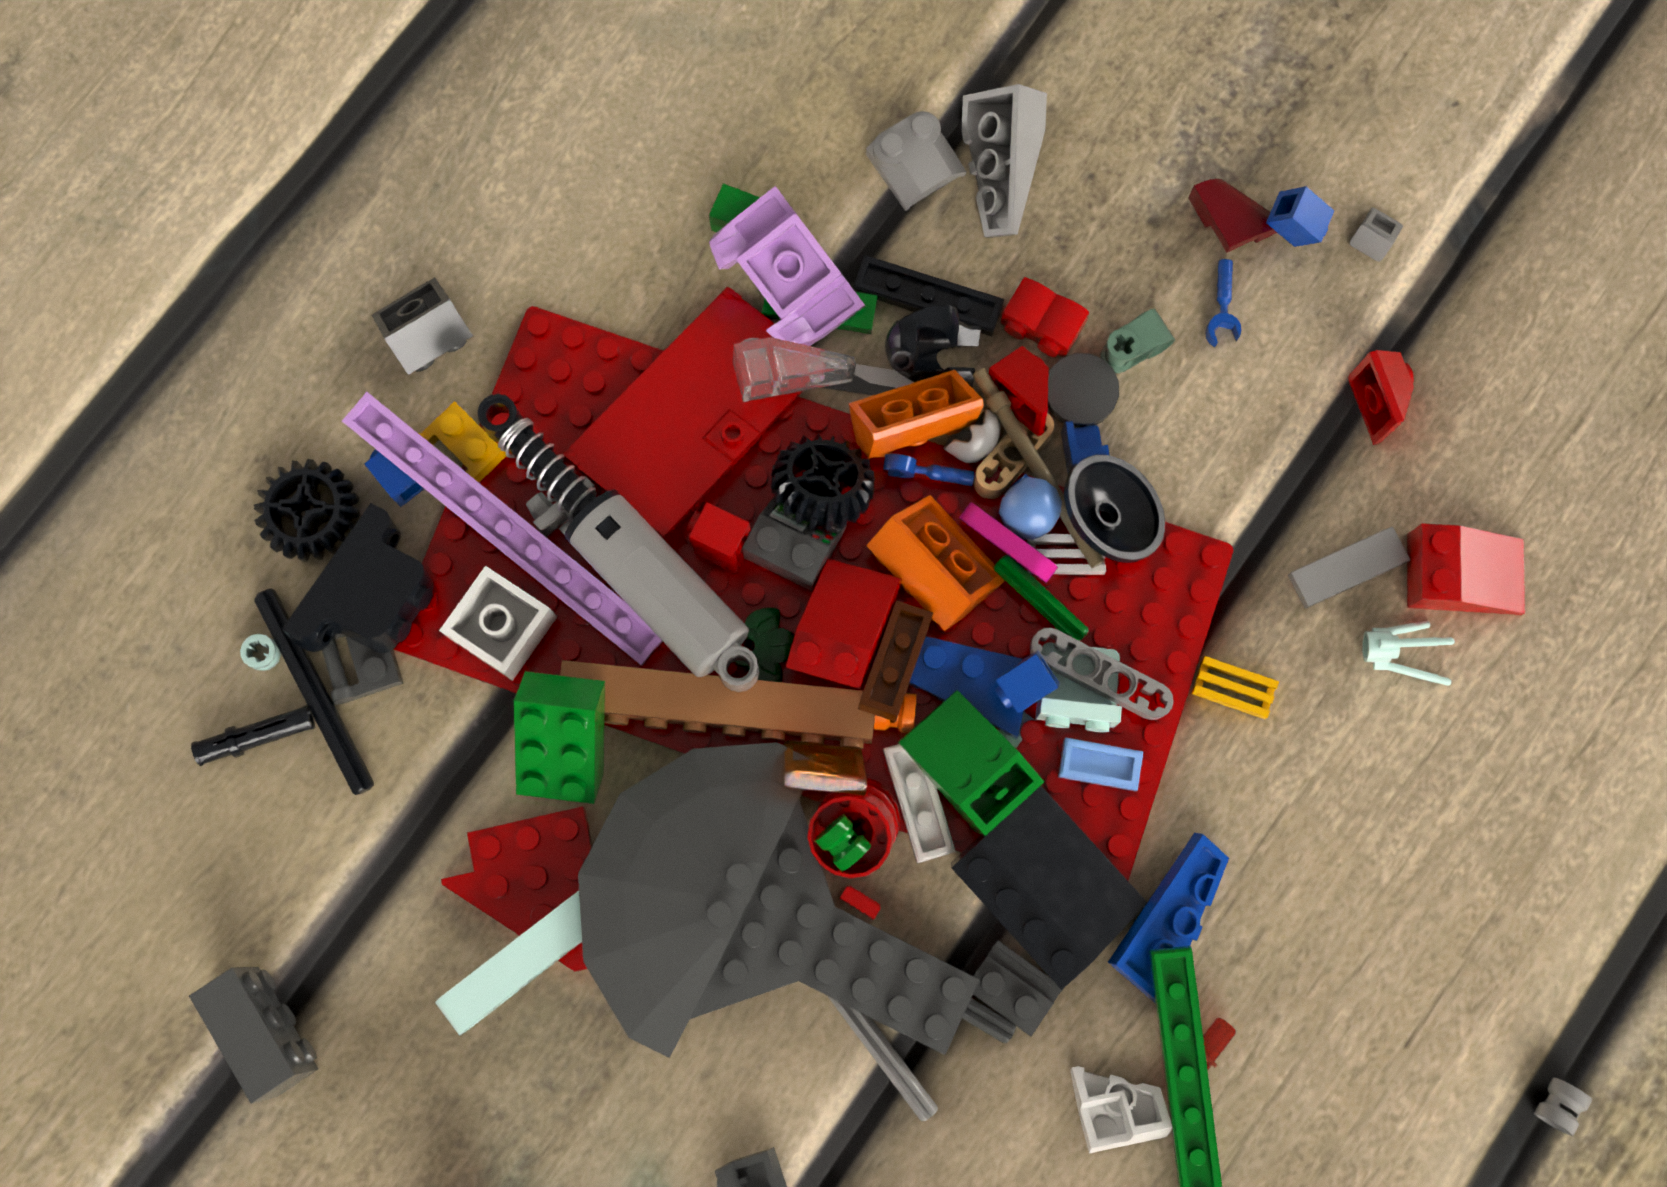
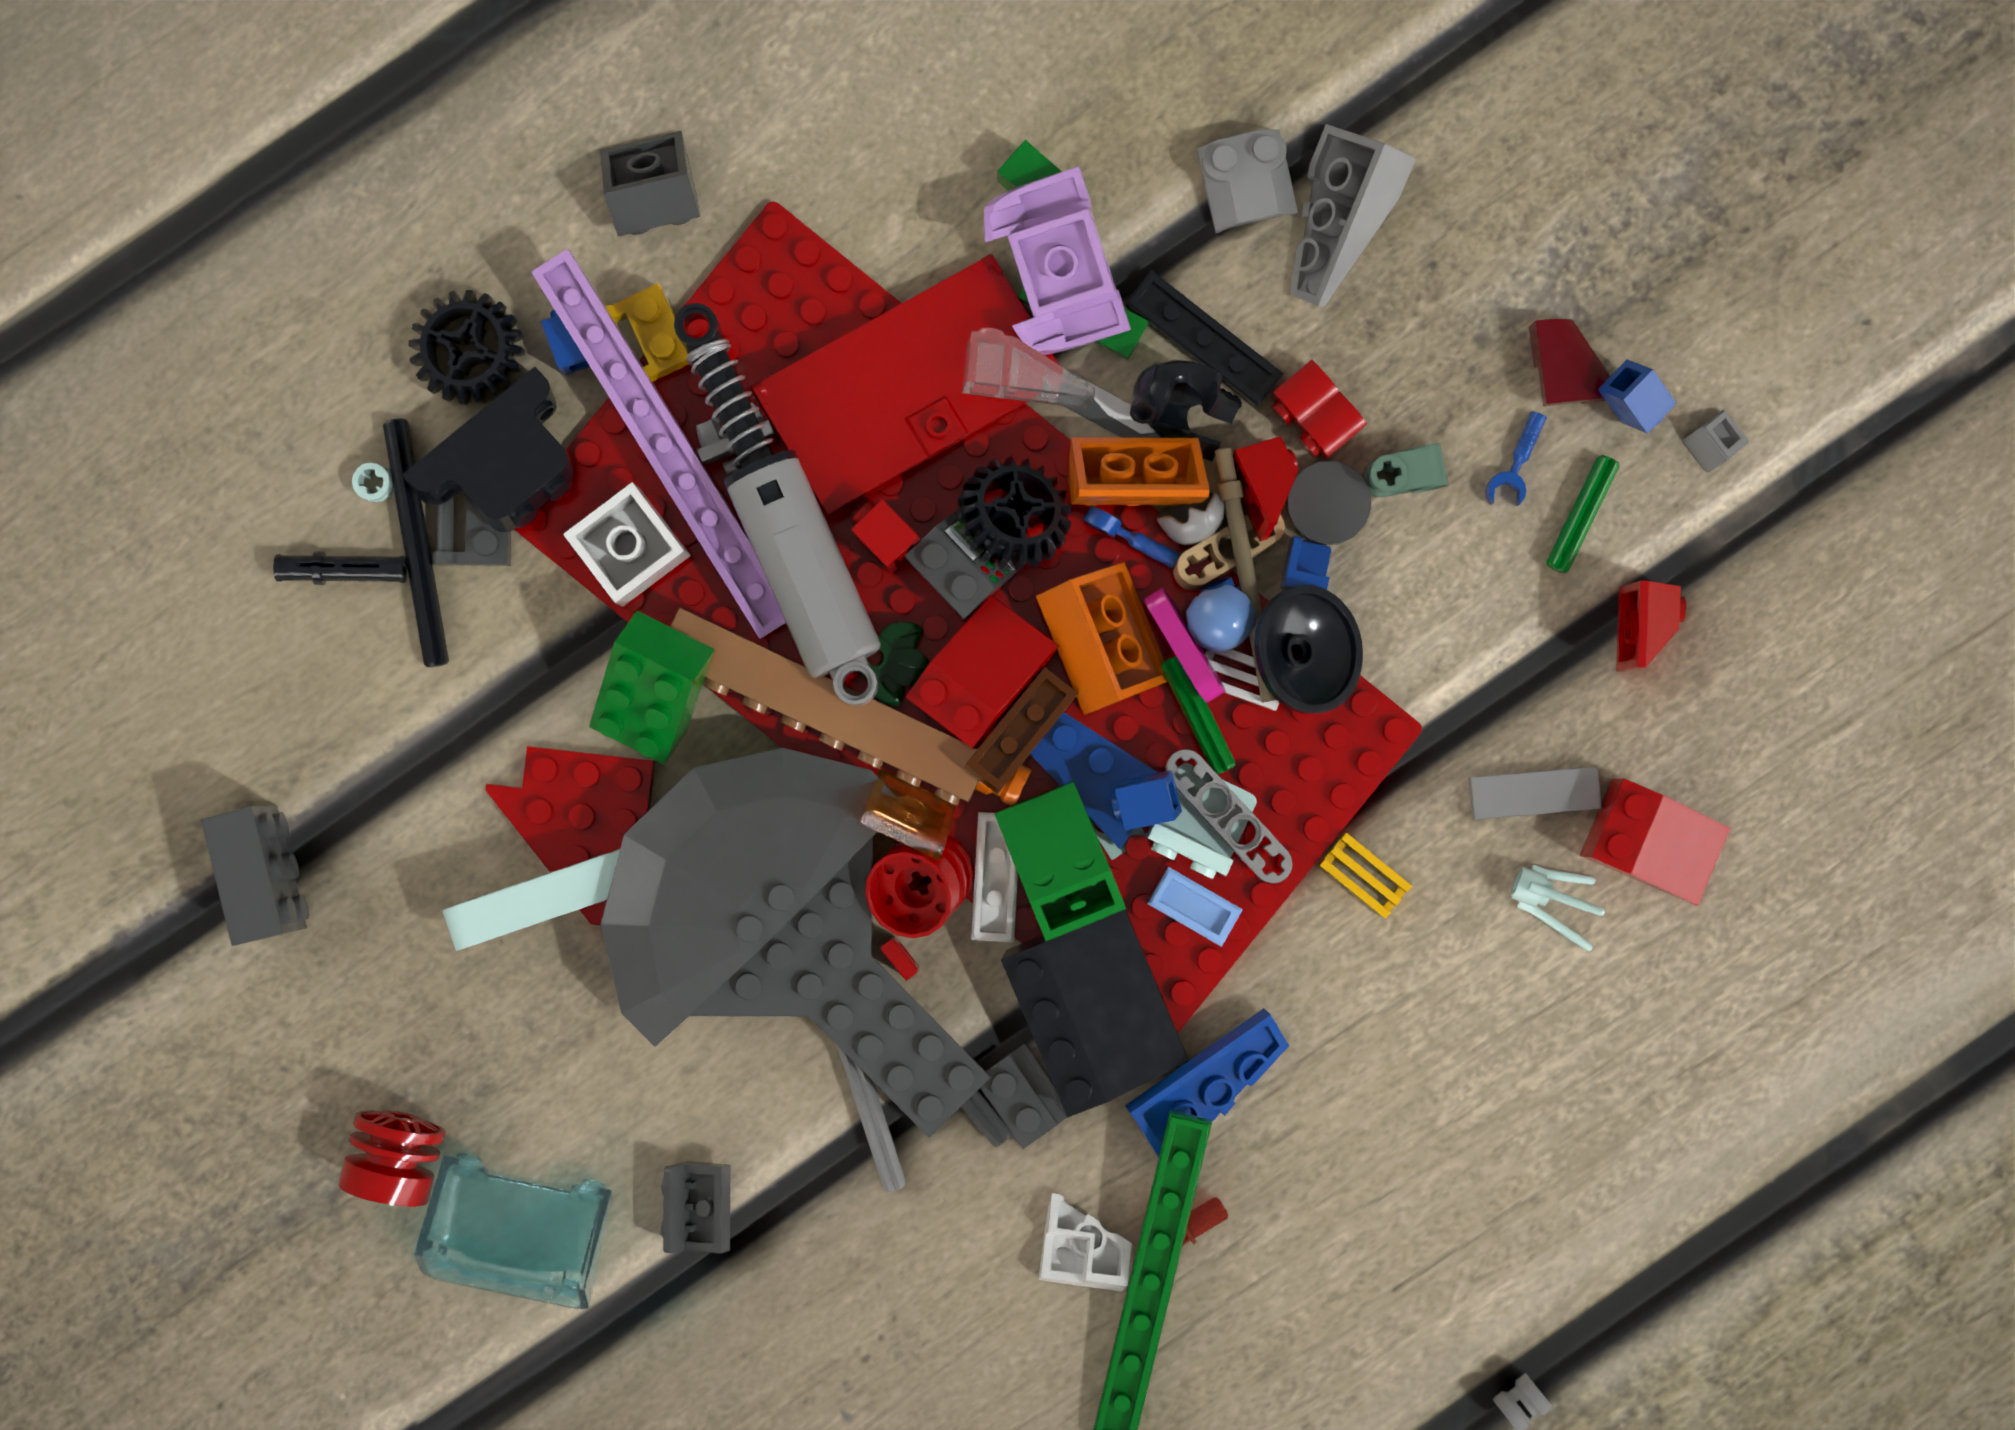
camera: 20 degrees right, 10 degrees up
(842, 842) = (899, 898): green wheel -> none
(1294, 327) = (1583, 514): none -> green axle

